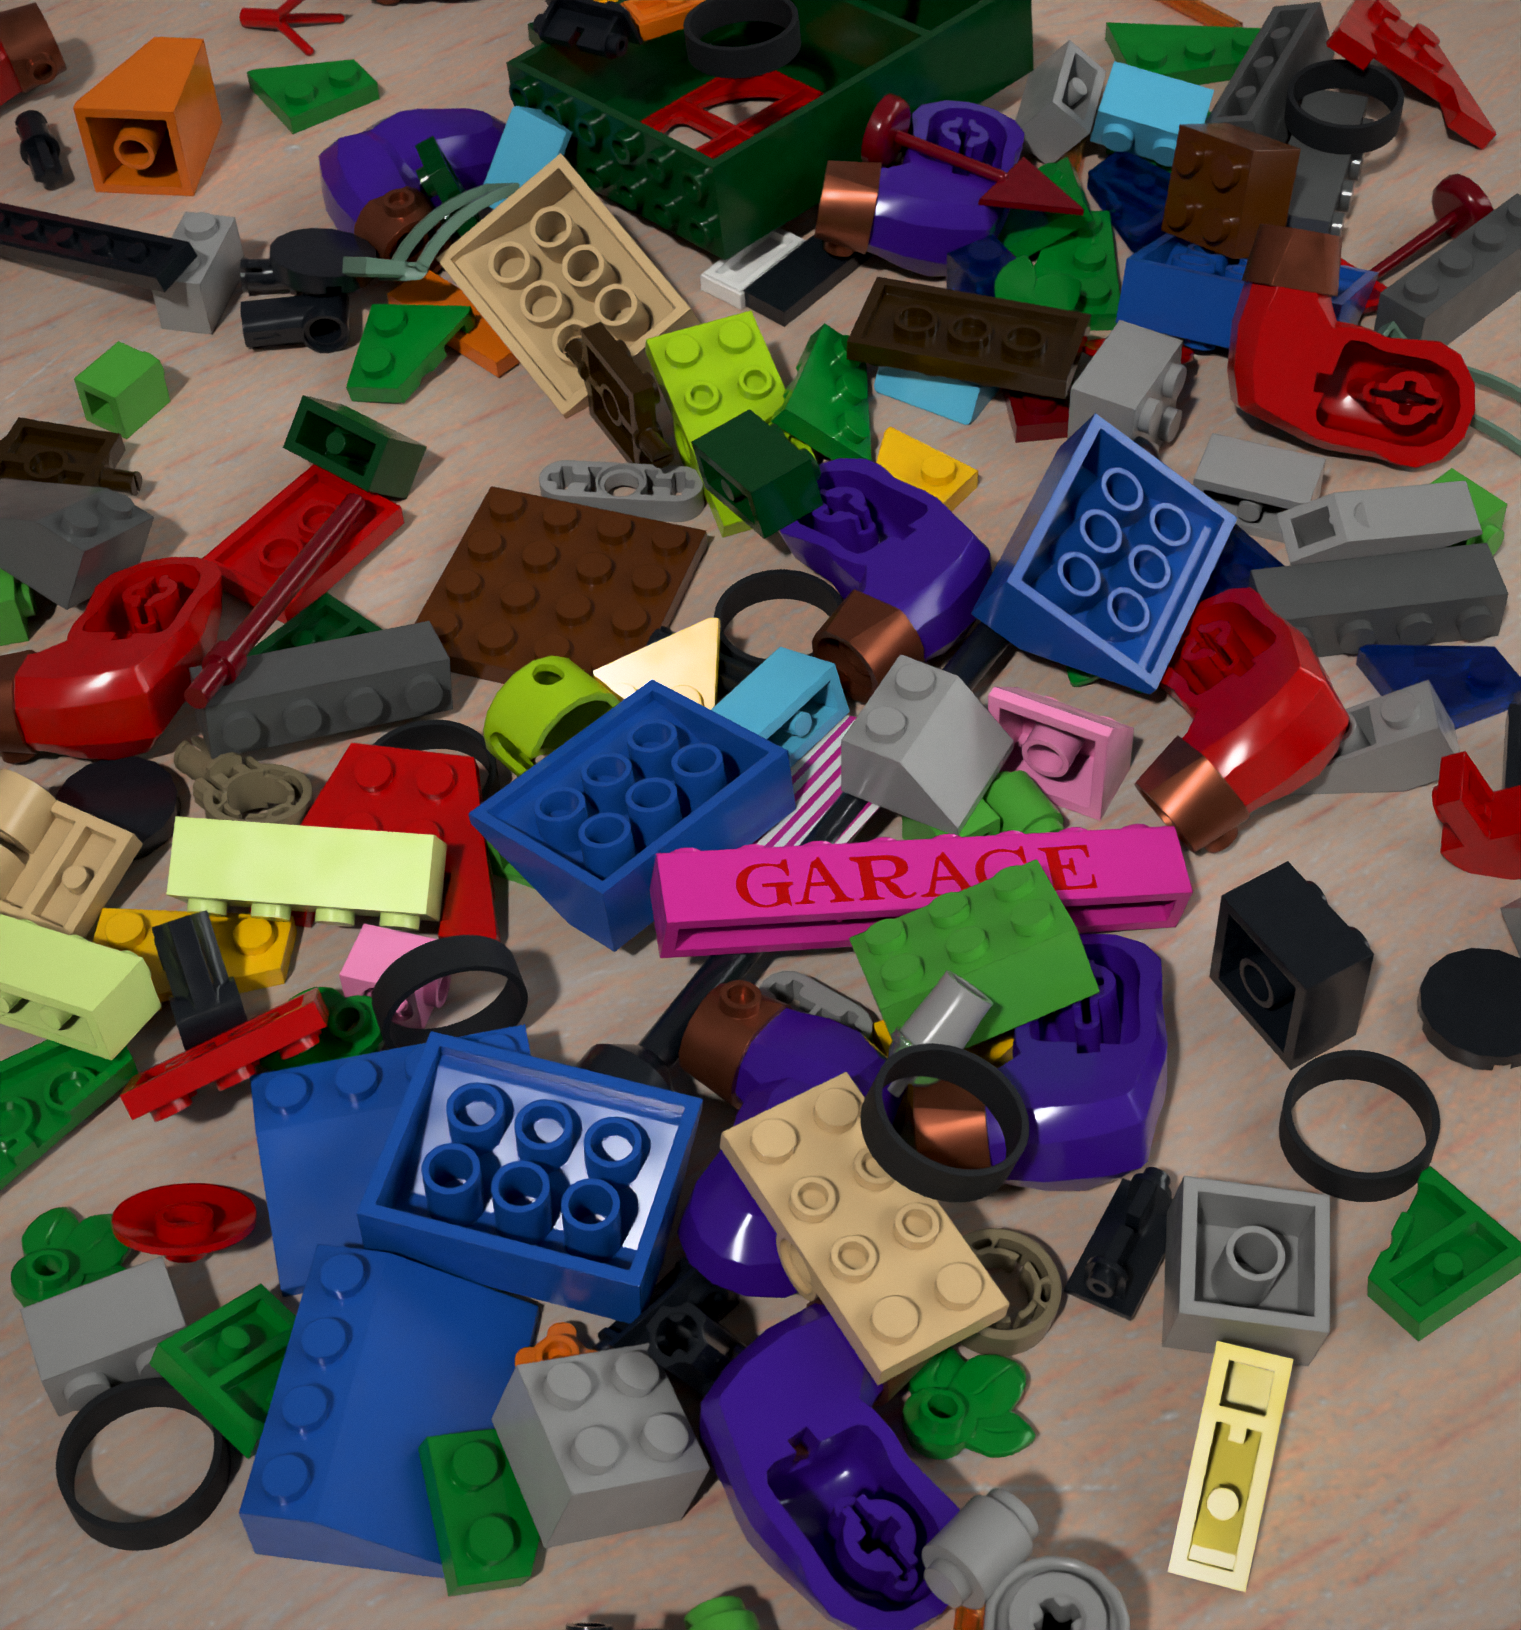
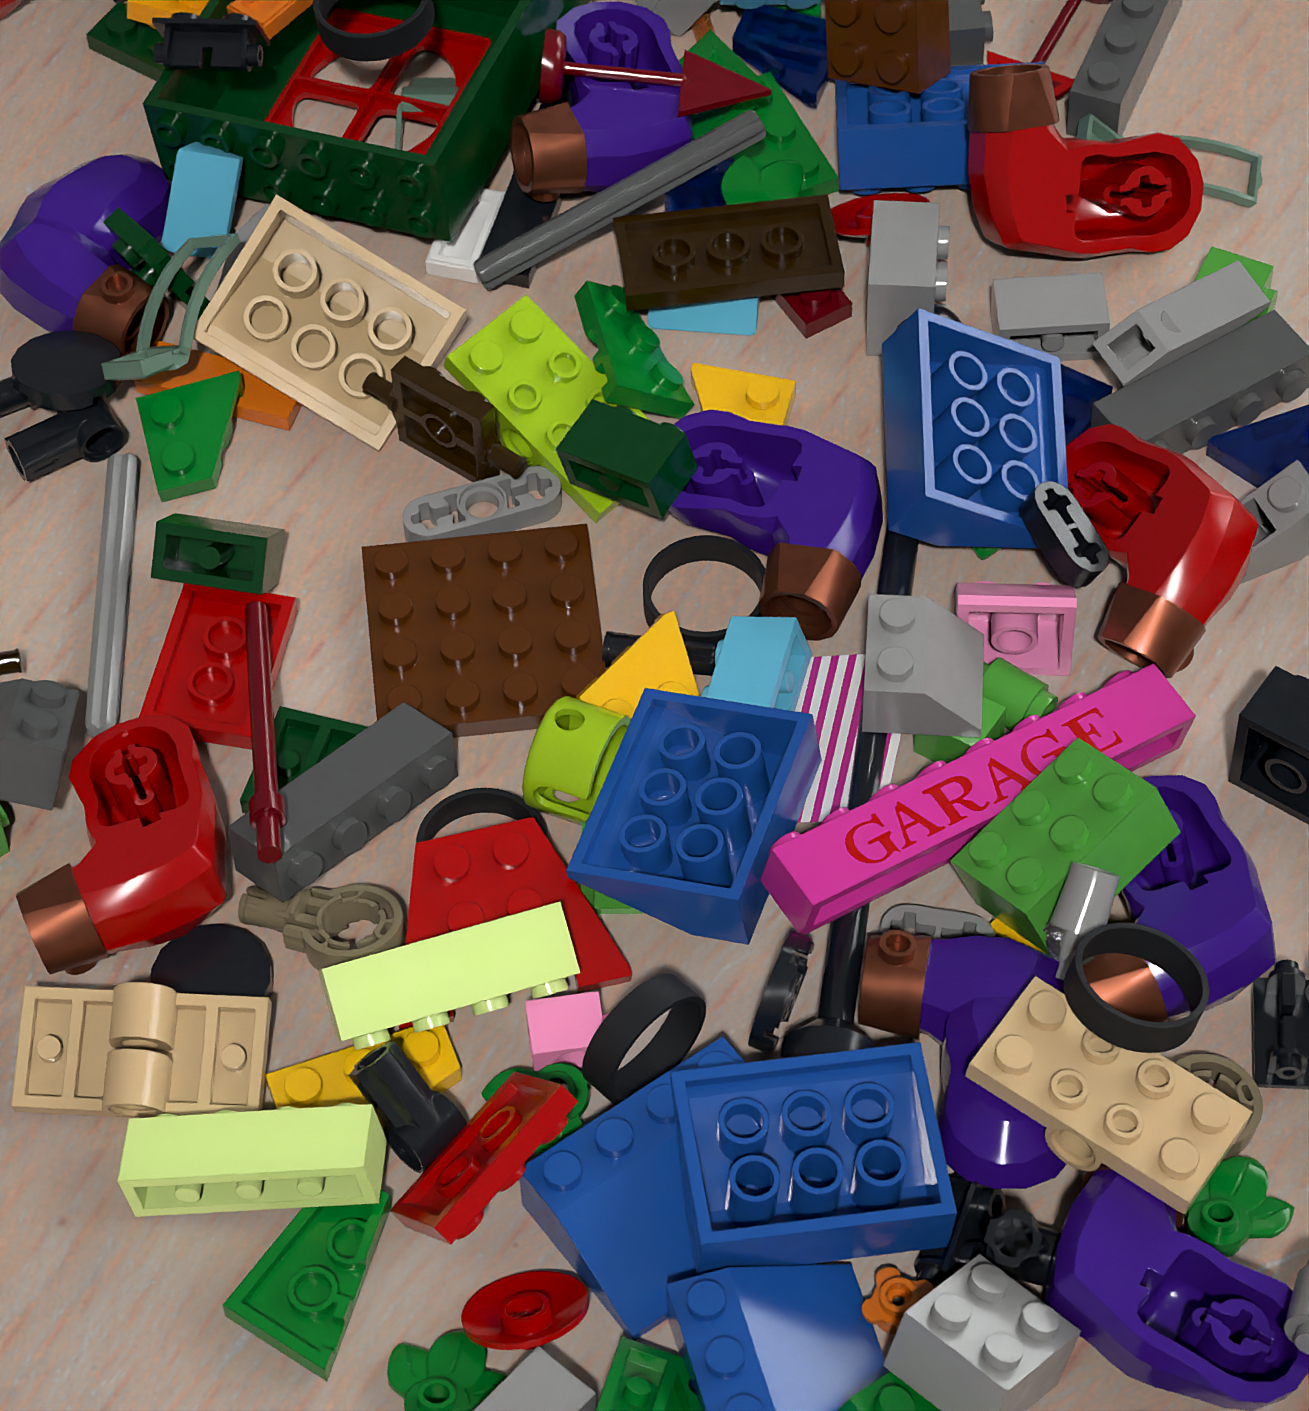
camera: 25 degrees left, 5 degrees up
(252, 458) = (112, 594): none -> light grey axle
(613, 1003) = (781, 992): none -> black tile
(893, 261) = (619, 199): none -> dark grey axle
(1151, 673) = (1064, 534): none -> black beam

